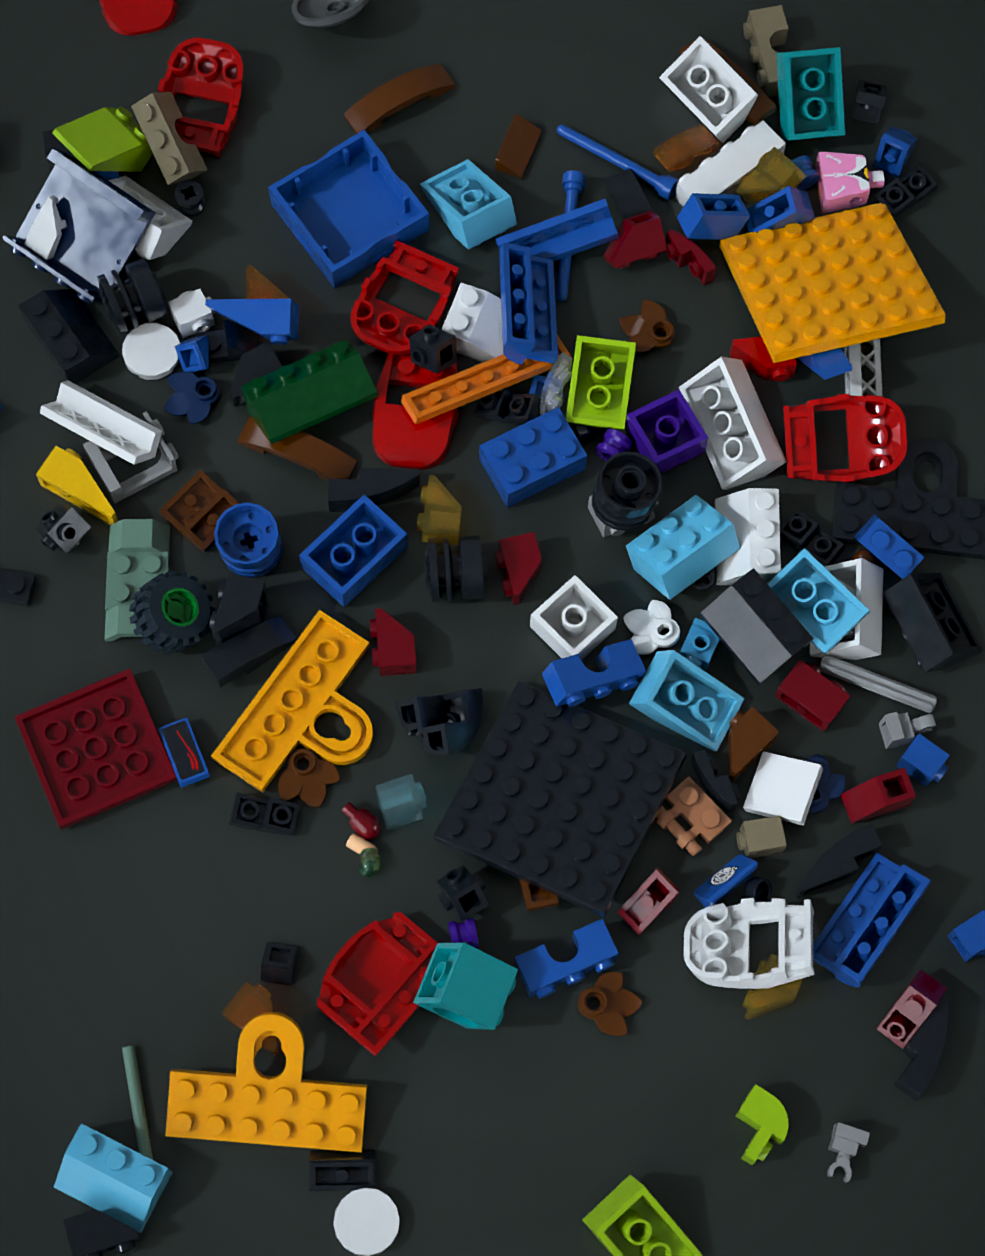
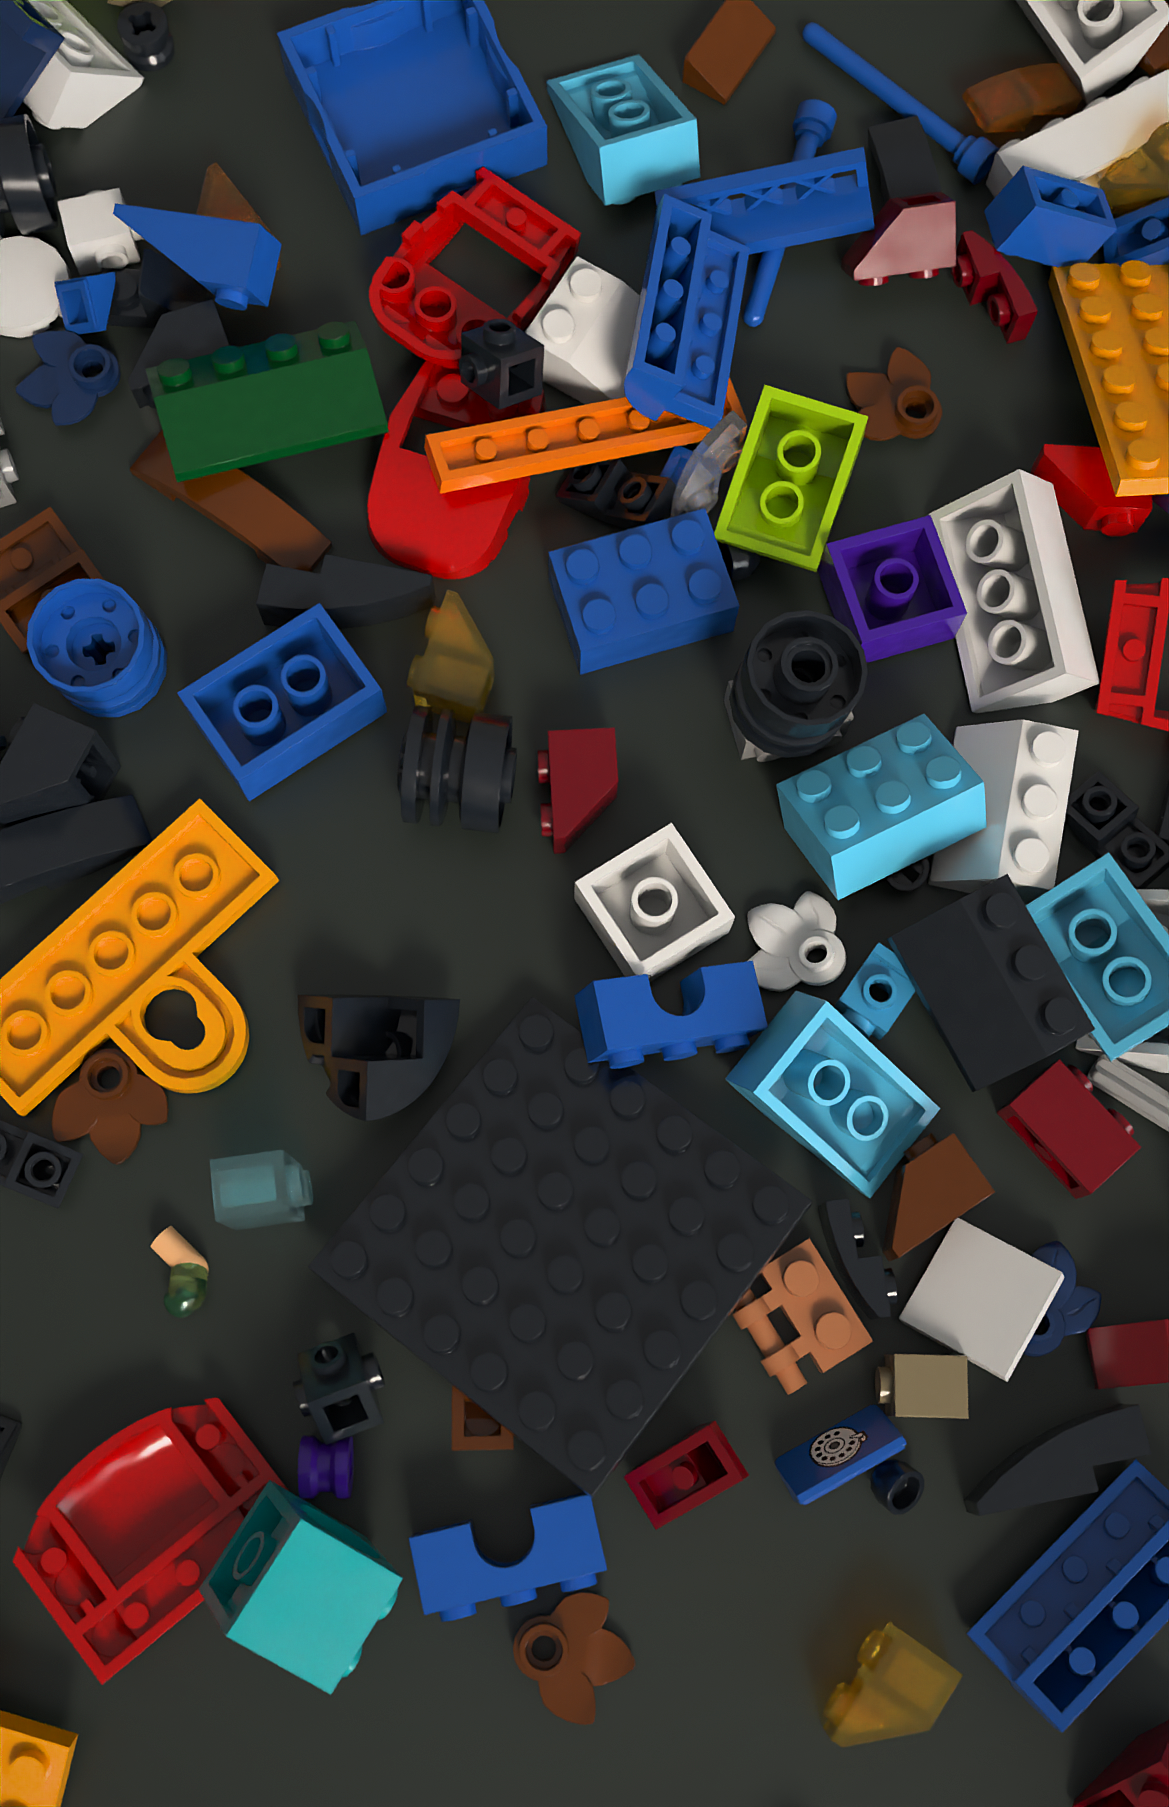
camera: 10 degrees right, 5 degrees up
(362, 821) = (189, 1207): dark red cylinder -> none
(395, 646) = (319, 890): dark red slope -> none
(614, 443) = (792, 593): dark purple wheel -> none
(720, 943) = (803, 1589): white slope -> none

